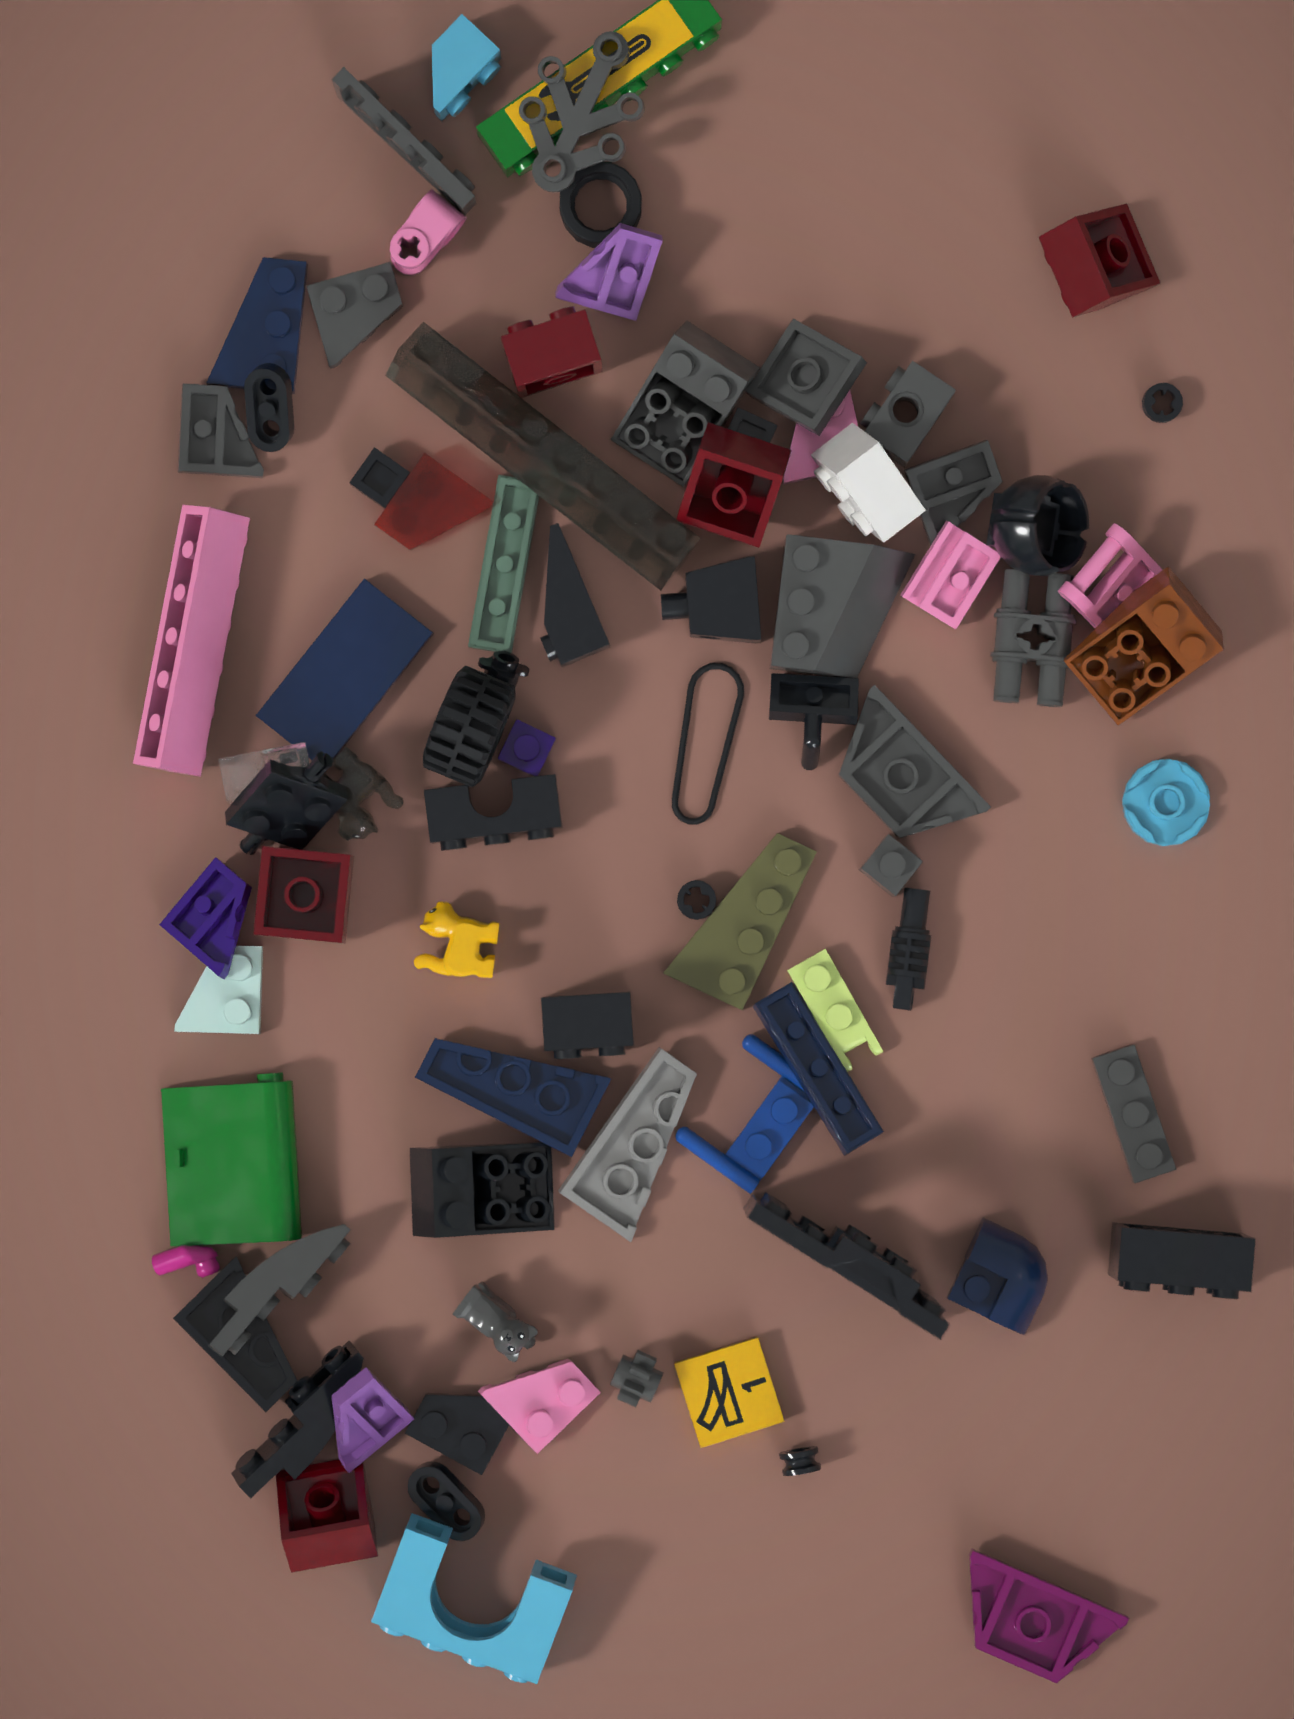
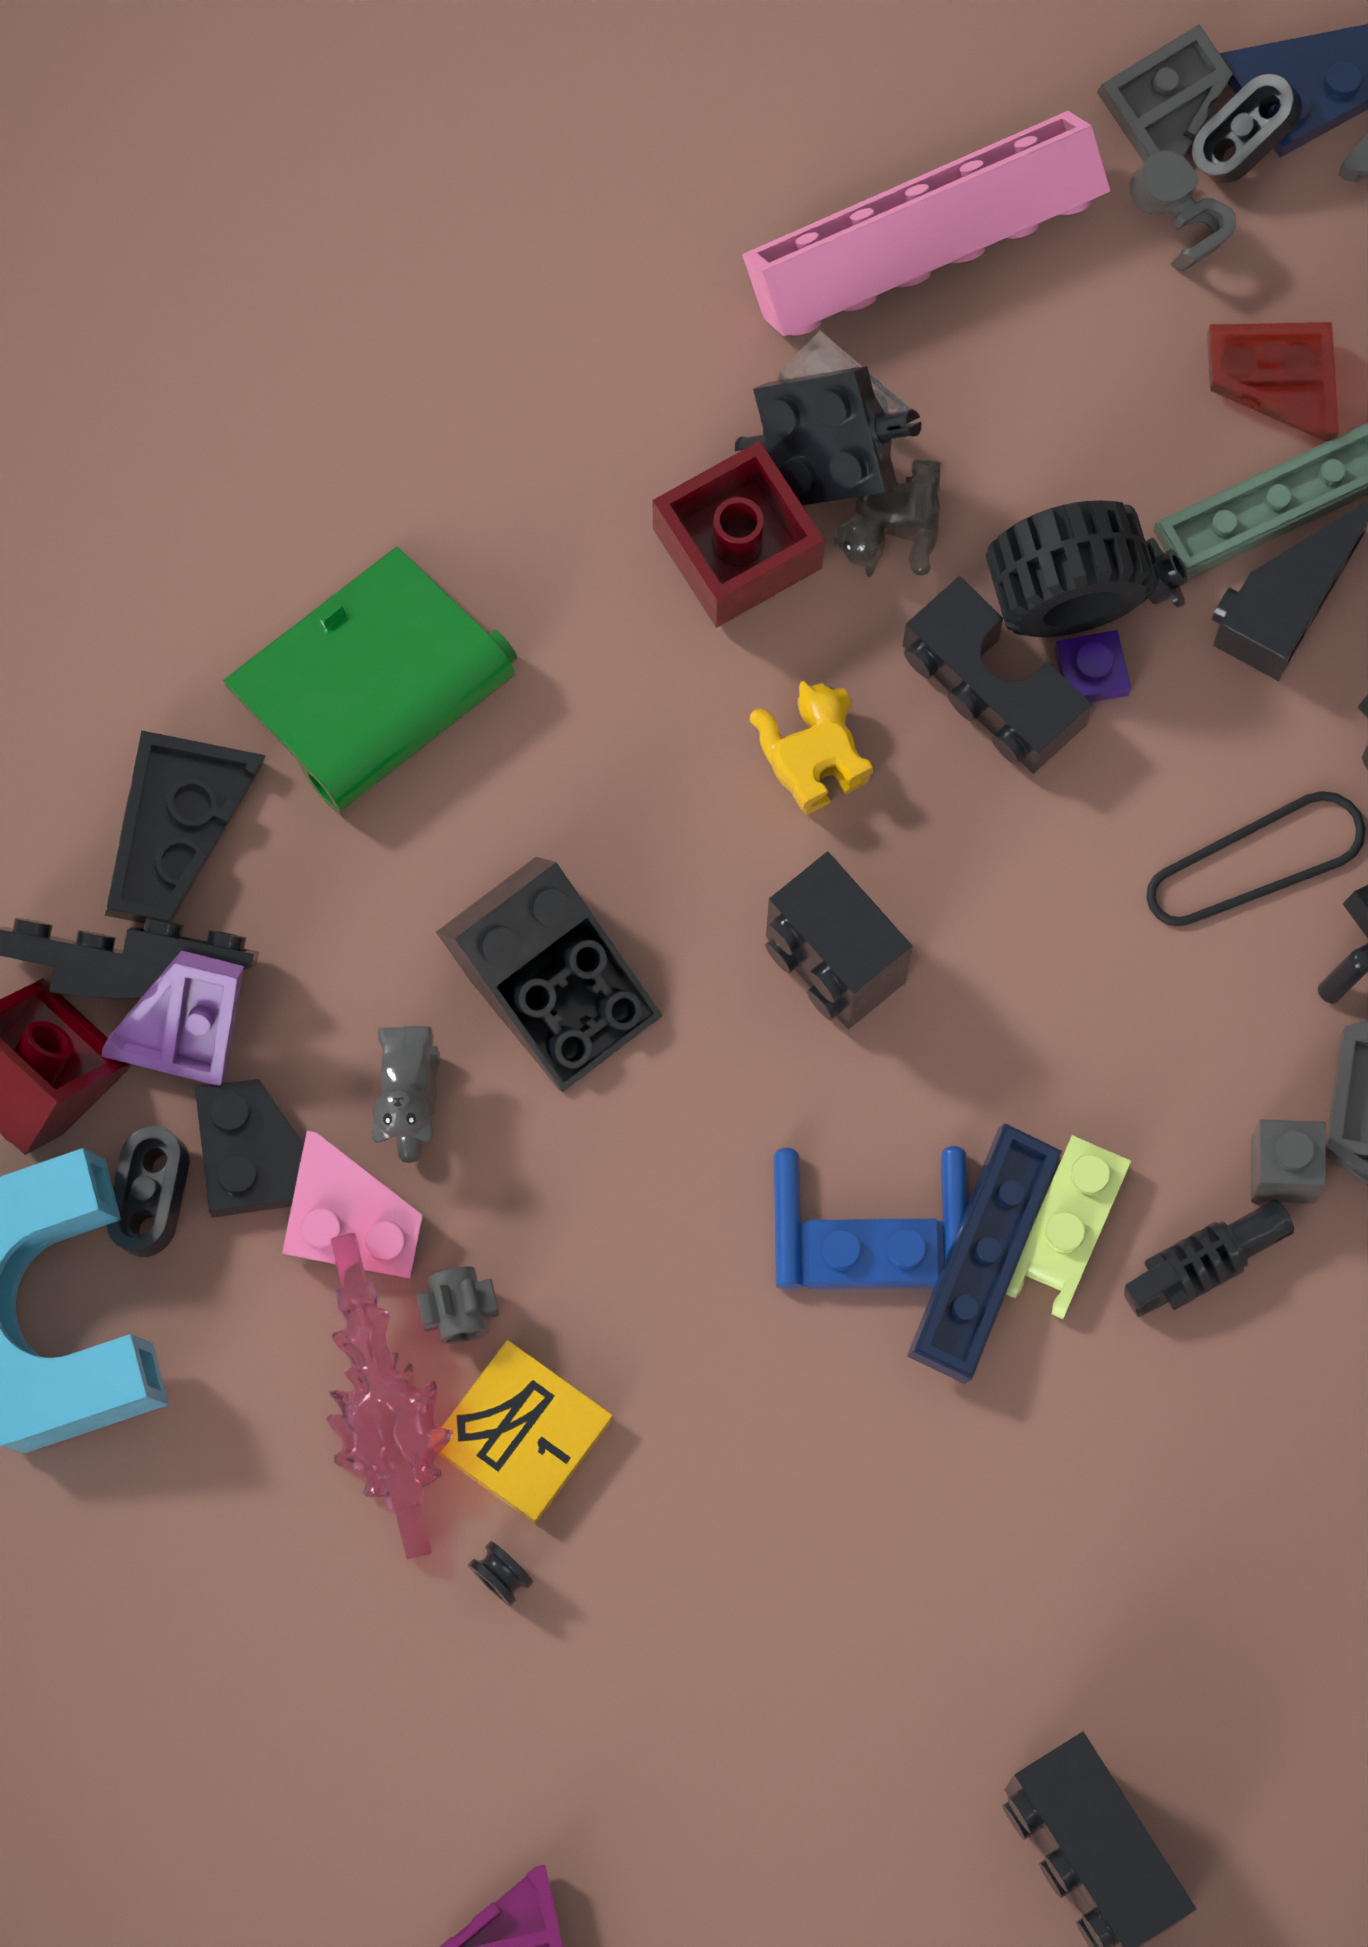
camera: 50 degrees right, 15 degrees down
(185, 1256) = (226, 703): dark pink arm -> none
(211, 916) = (634, 457): dark purple wing -> none
(227, 1003) = (559, 541): light aqua wing -> none
(273, 481) = (1167, 185): none -> dark grey leg
(290, 1271) = (293, 814): dark grey slope -> none
(345, 672) = (1022, 416): dark blue tile -> none
(379, 478) = (1264, 295): black plate -> none
(525, 1094) = (696, 947): dark blue wing -> none
(623, 1159) = (718, 1106): light grey wing -> none
(667, 1463) = (385, 1419): none -> clear pink piece
(705, 889) = (1072, 955): black bush -> none
(741, 931) = (1073, 1054): olive wing -> none
(854, 1258) = (798, 1424): black piece -> none
(1001, 1277) = (902, 1655): dark blue brick -> none
(1133, 1113) = (1221, 1673): dark grey plate -> none

